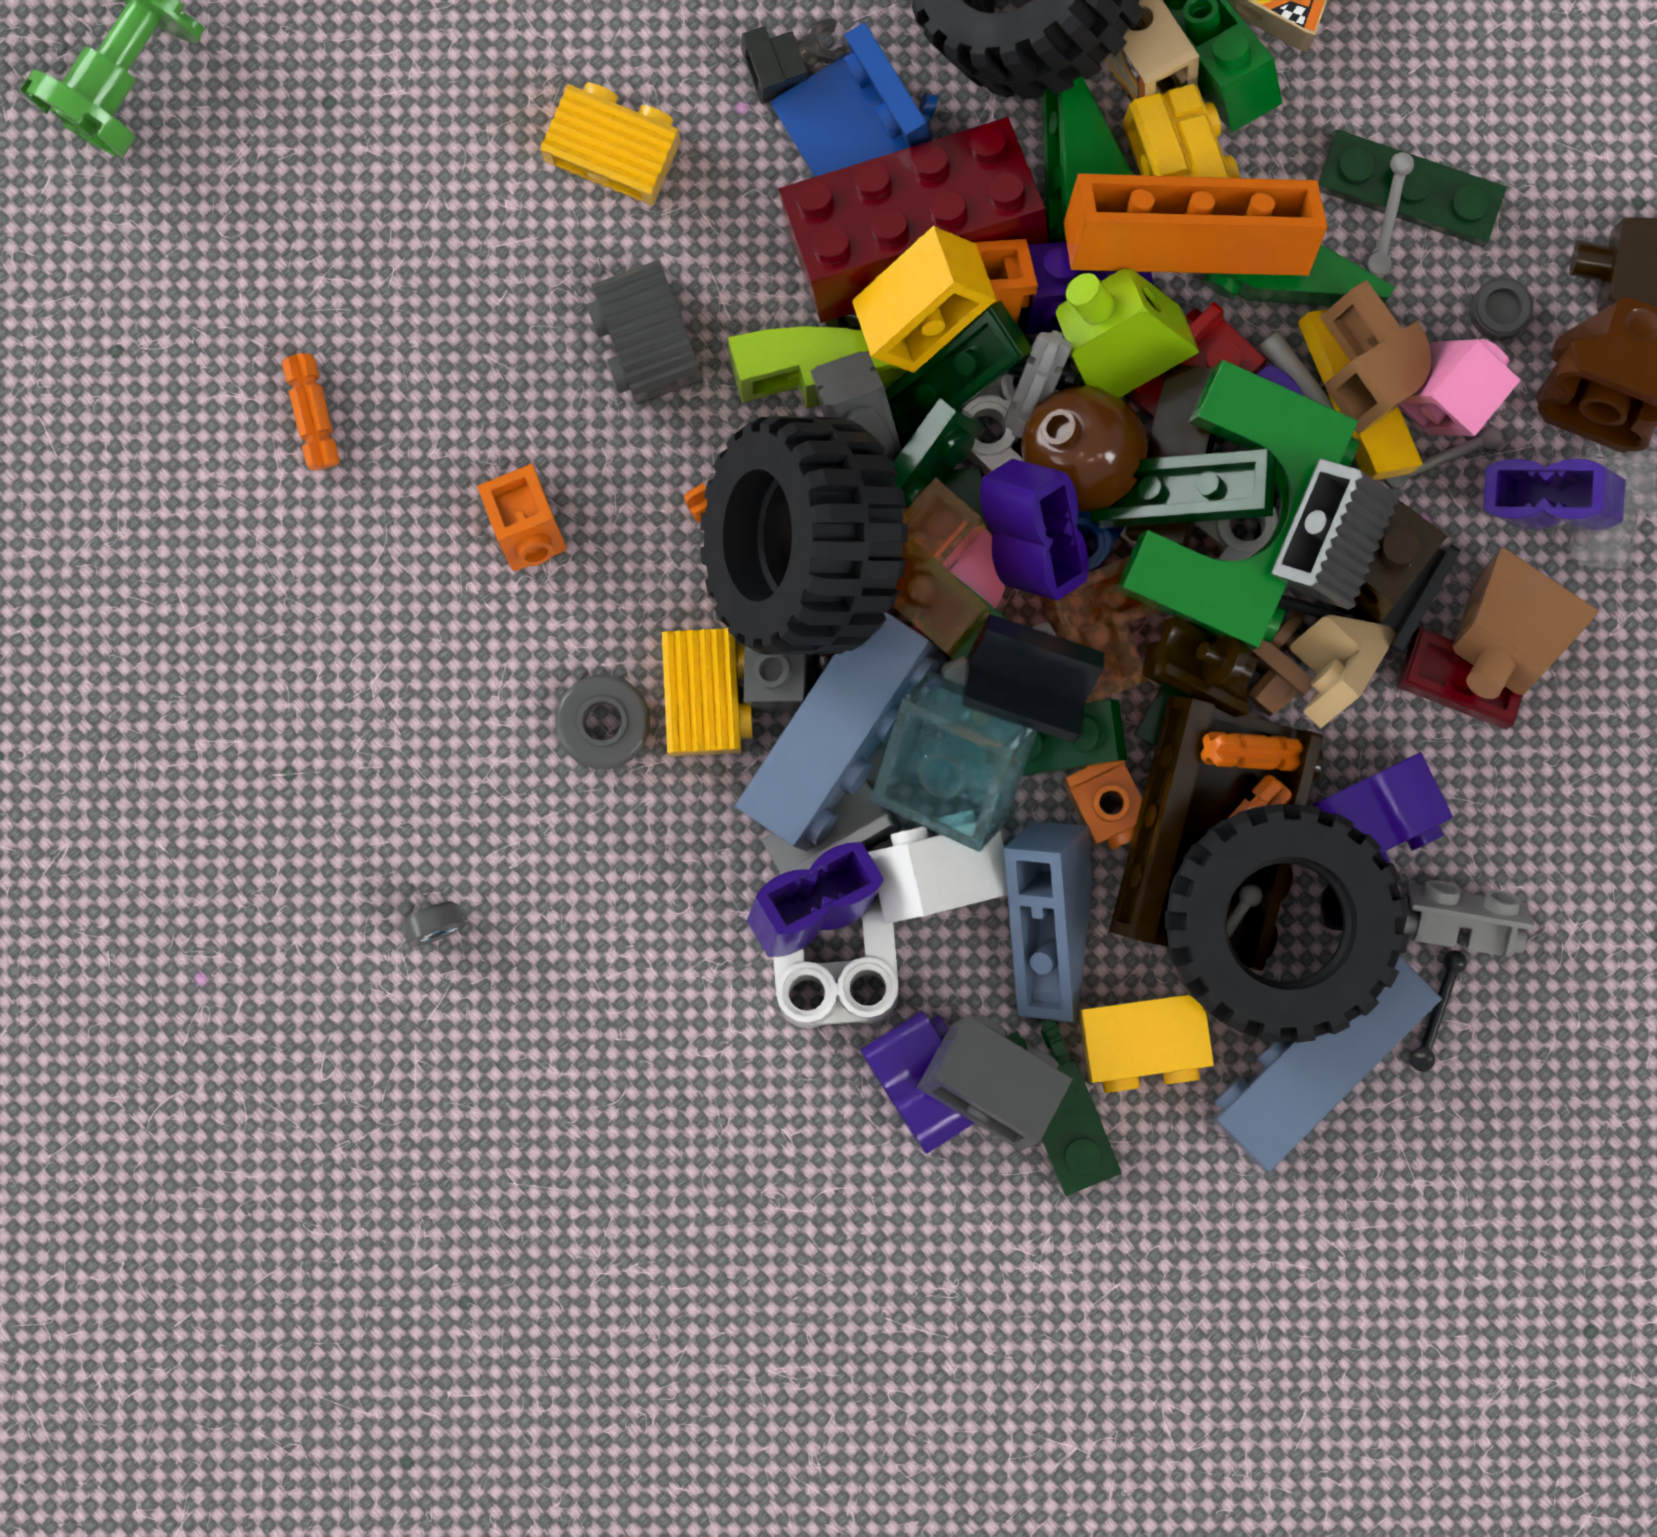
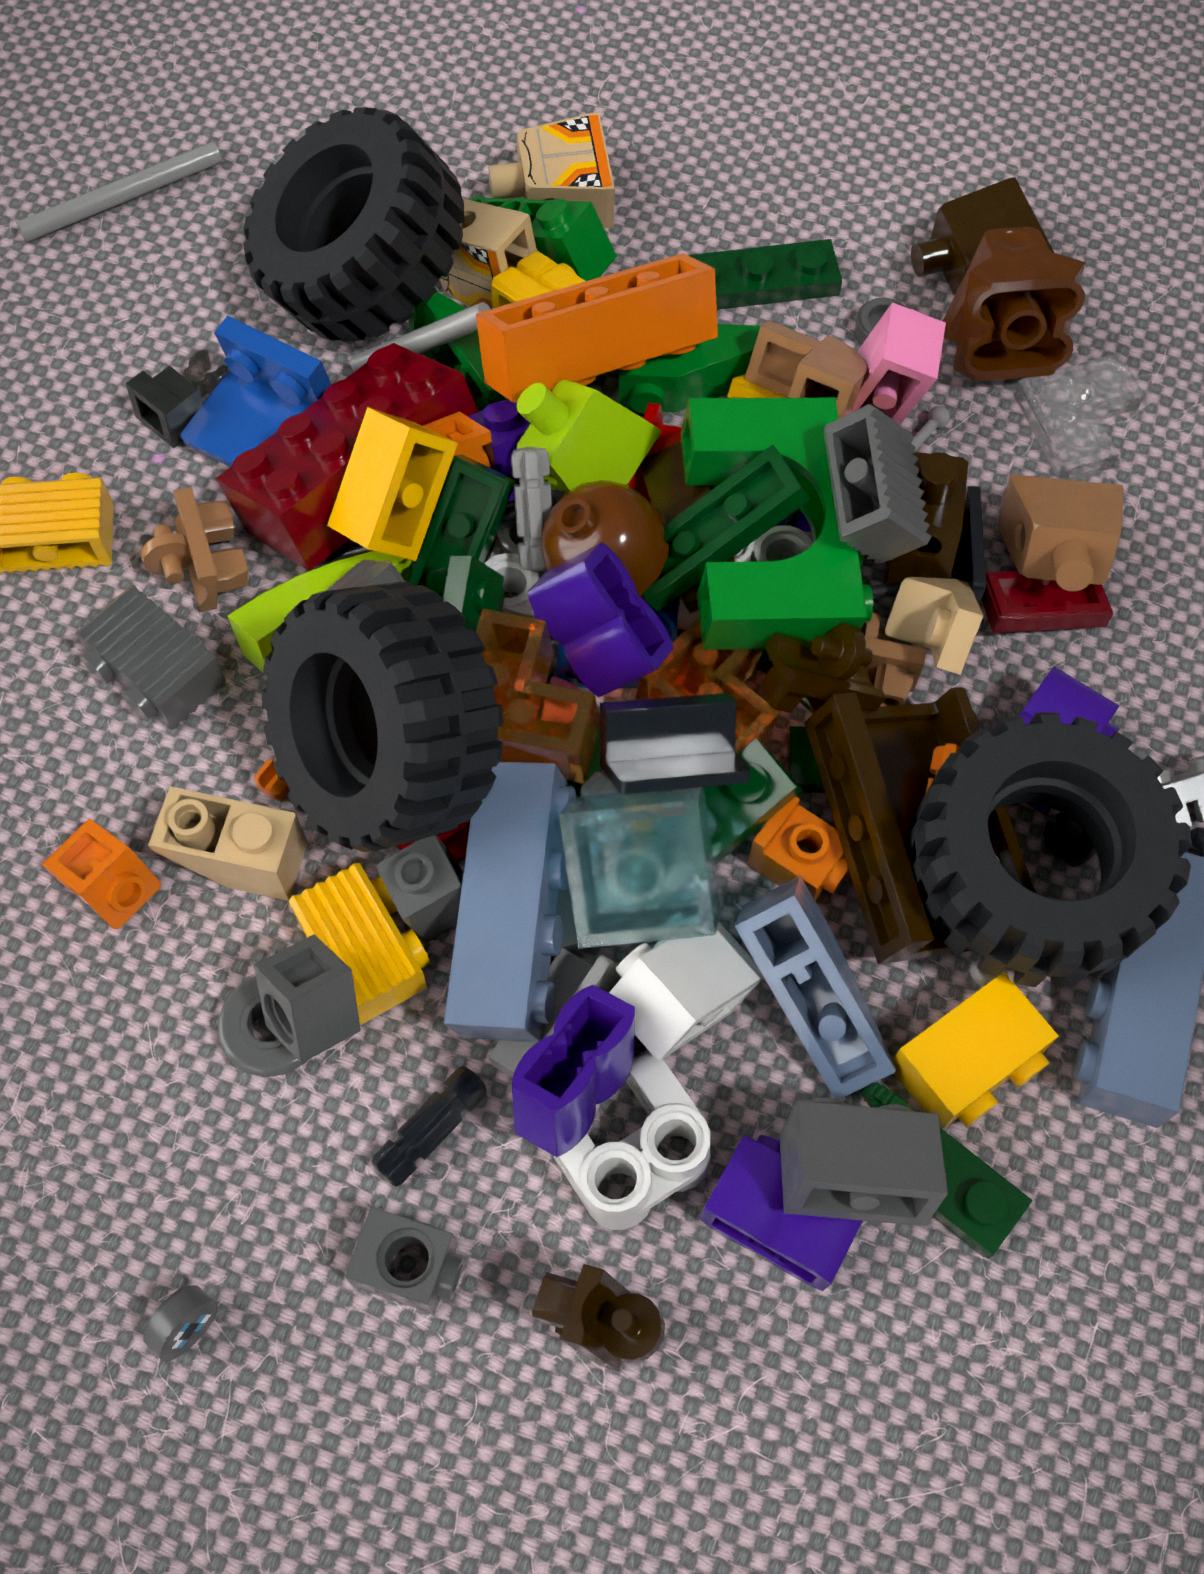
camera: 30 degrees left, 20 degrees down
(592, 961) = (382, 1239): none -> dark grey brick
(637, 549) = (231, 841): none -> tan slope
(638, 730) = (307, 998): none -> dark grey brick
(688, 869) = (429, 1126): none -> black axle
(741, 215) = (189, 548): none -> medium nougat hips
(741, 1088) = (600, 1317): none -> dark brown hips
(1037, 127) = (431, 335): none -> light grey bar
(1251, 751) = (911, 724): orange axle -> none
(1379, 260) = (741, 245): light grey hinge -> none
(1565, 491) = (1036, 406): dark purple brick -> none

